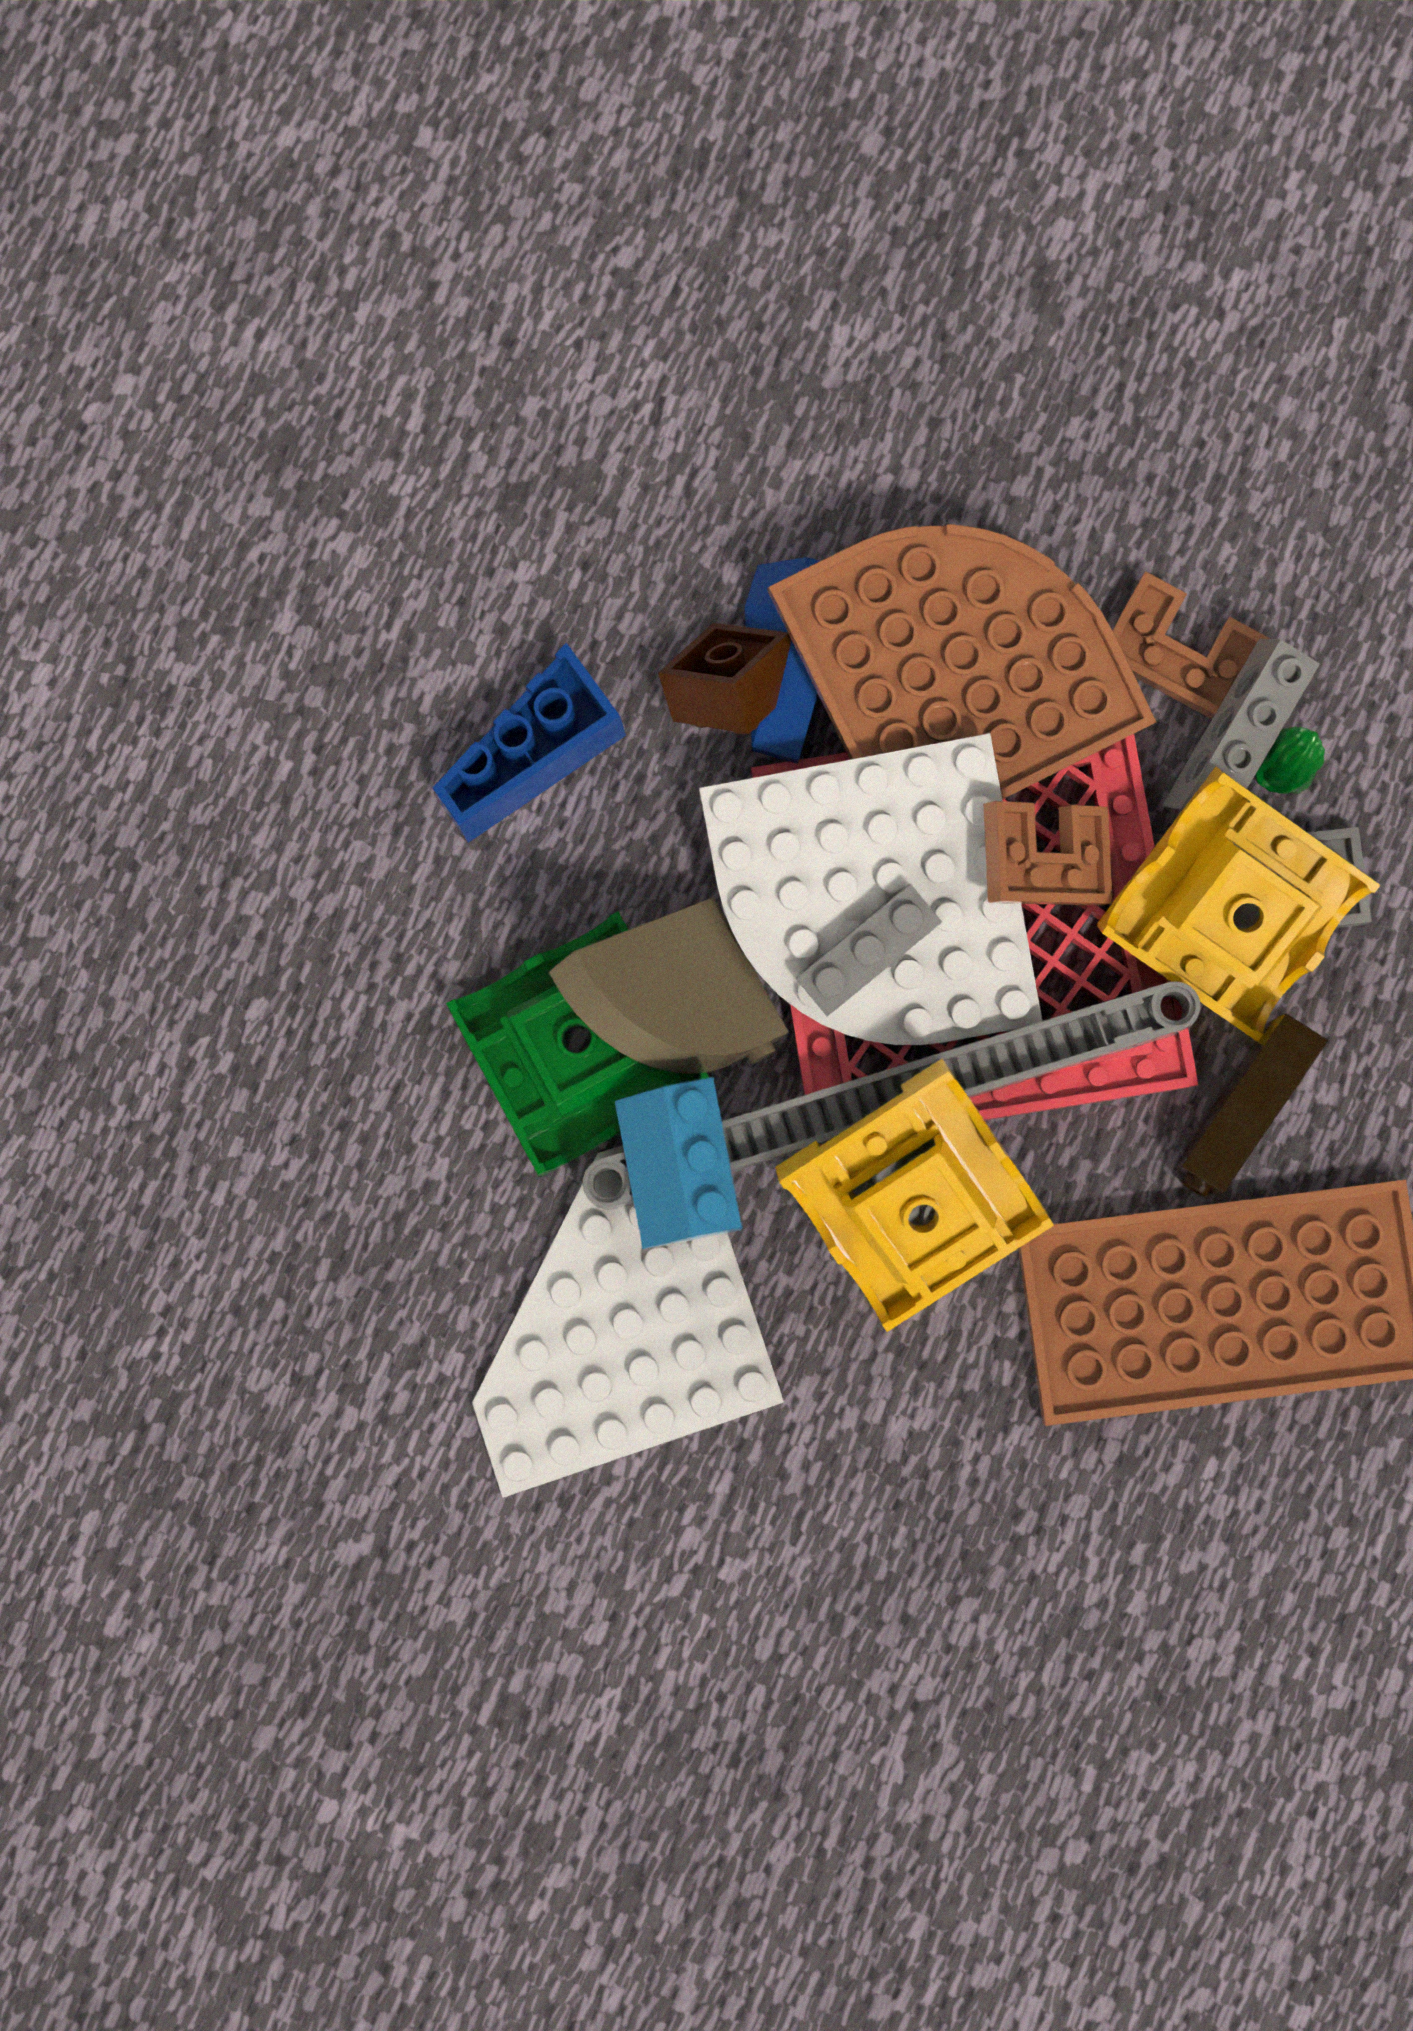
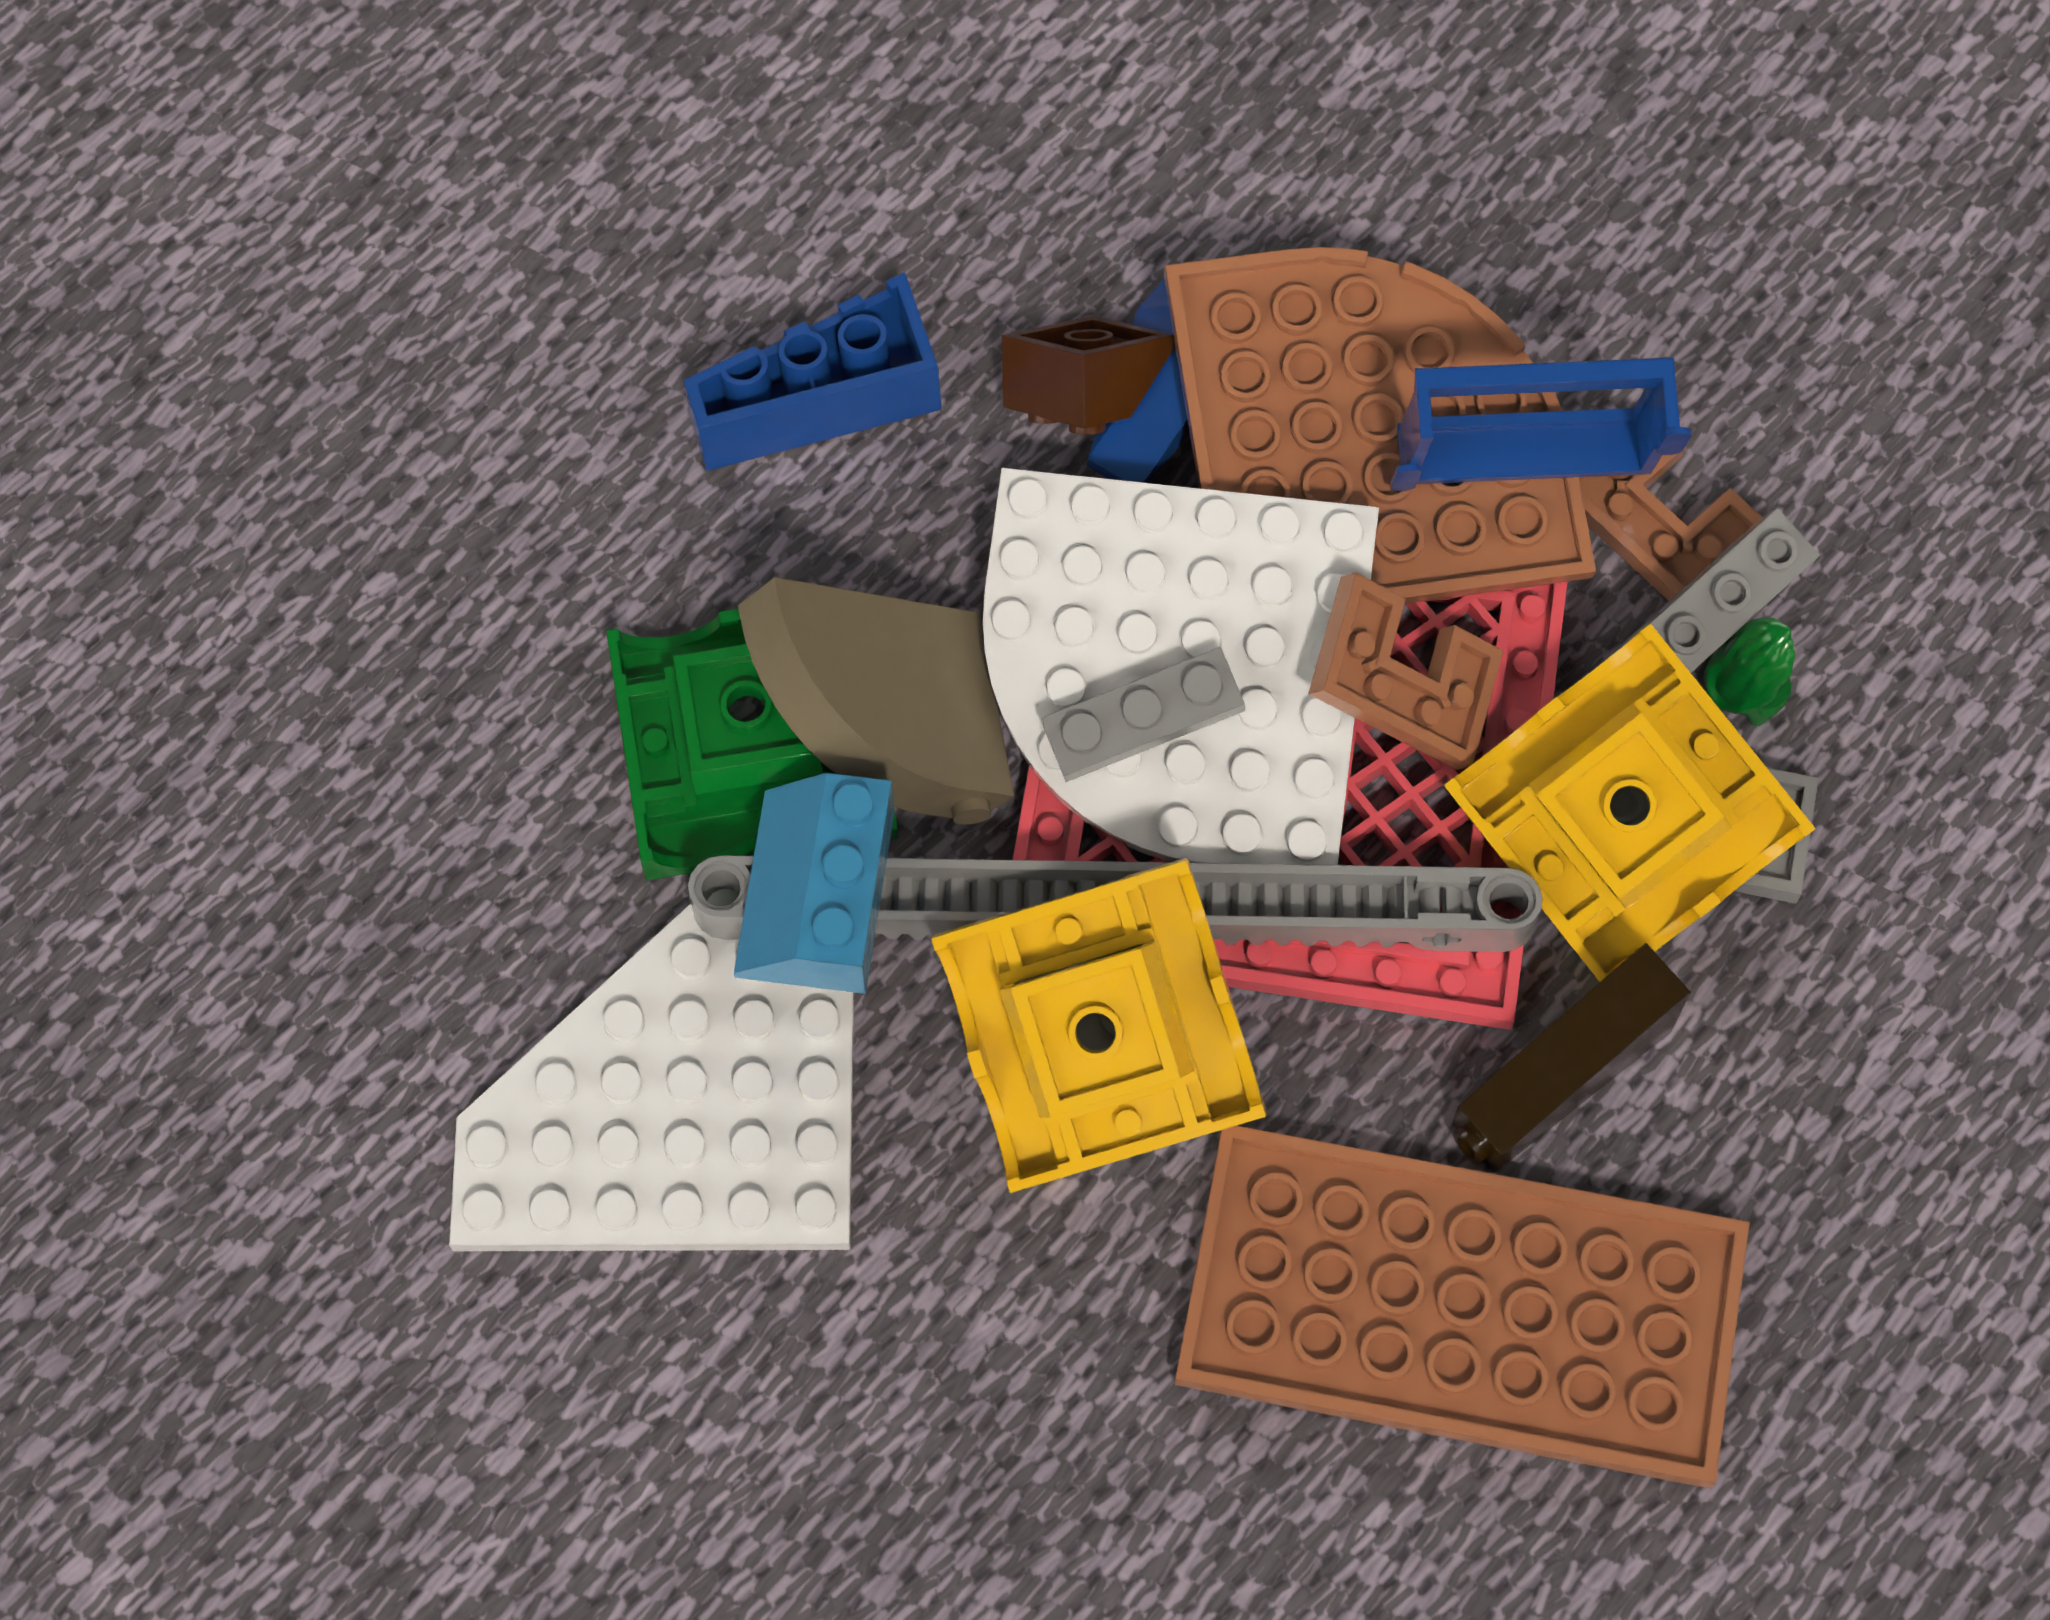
camera: 20 degrees right, 15 degrees down
(1093, 634) = (1539, 442): none -> blue piece

